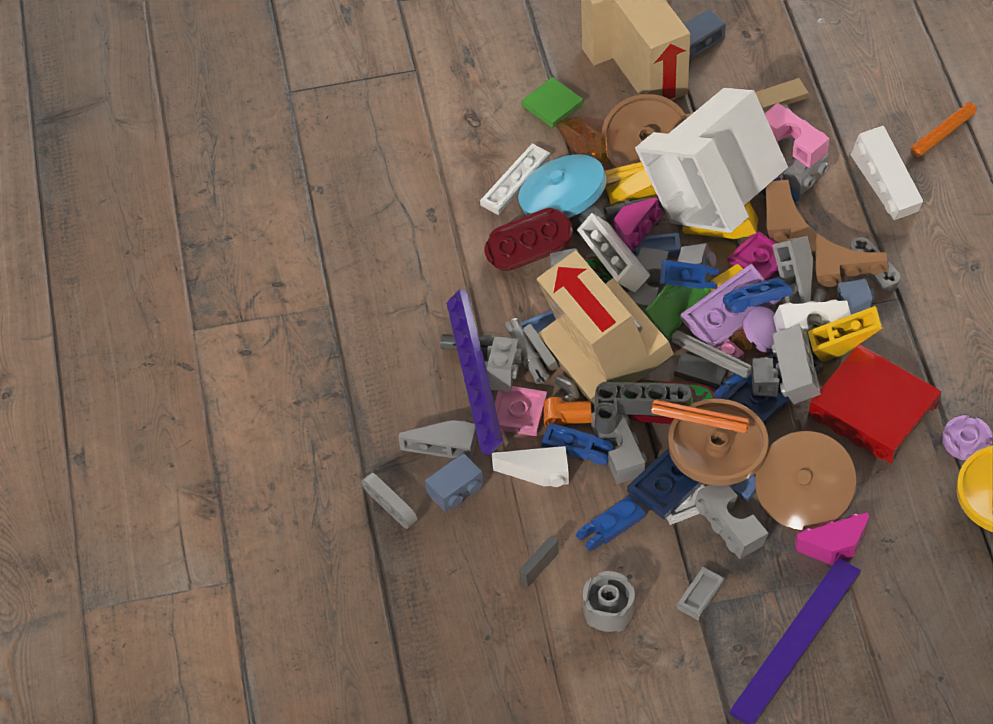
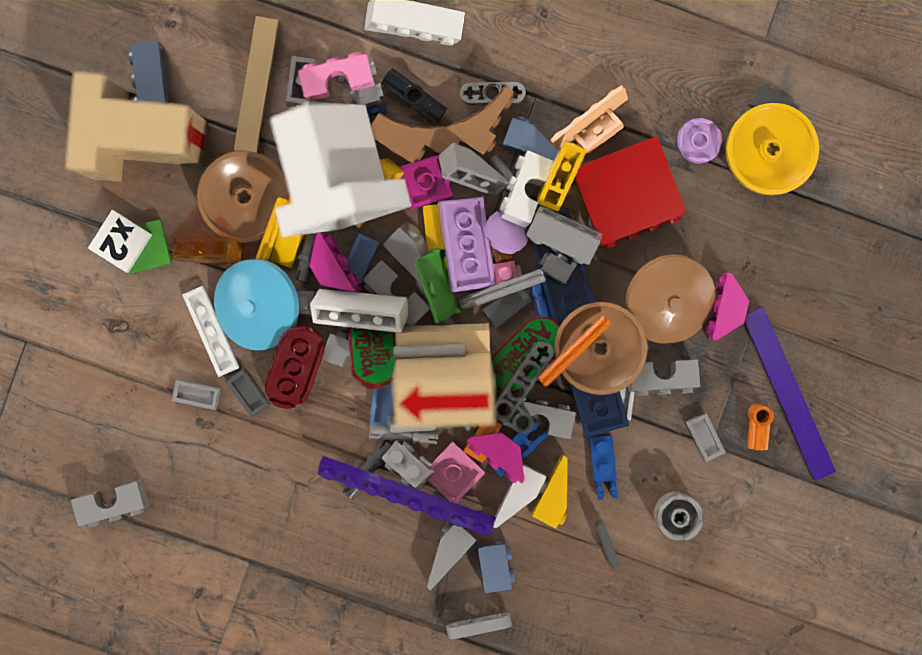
camera: 60 degrees left, 35 degrees up
(329, 192) = (91, 509): none -> light grey arch
(453, 195) = (196, 394): none -> light grey tile
(480, 228) = (248, 392): none -> dark grey tile
(545, 81) = (120, 241): none -> white tile
(554, 494) = (553, 501): none -> yellow slope
(565, 417) = (500, 453): none -> dark pink slope
(686, 274) = (429, 268): blue hinge -> none
(743, 630) = (759, 429): none -> orange piece
(756, 294) = (476, 218): blue hinge -> none
(825, 208) = (403, 87): none -> black piece
(915, 345) = (594, 125): none -> light nougat bracket

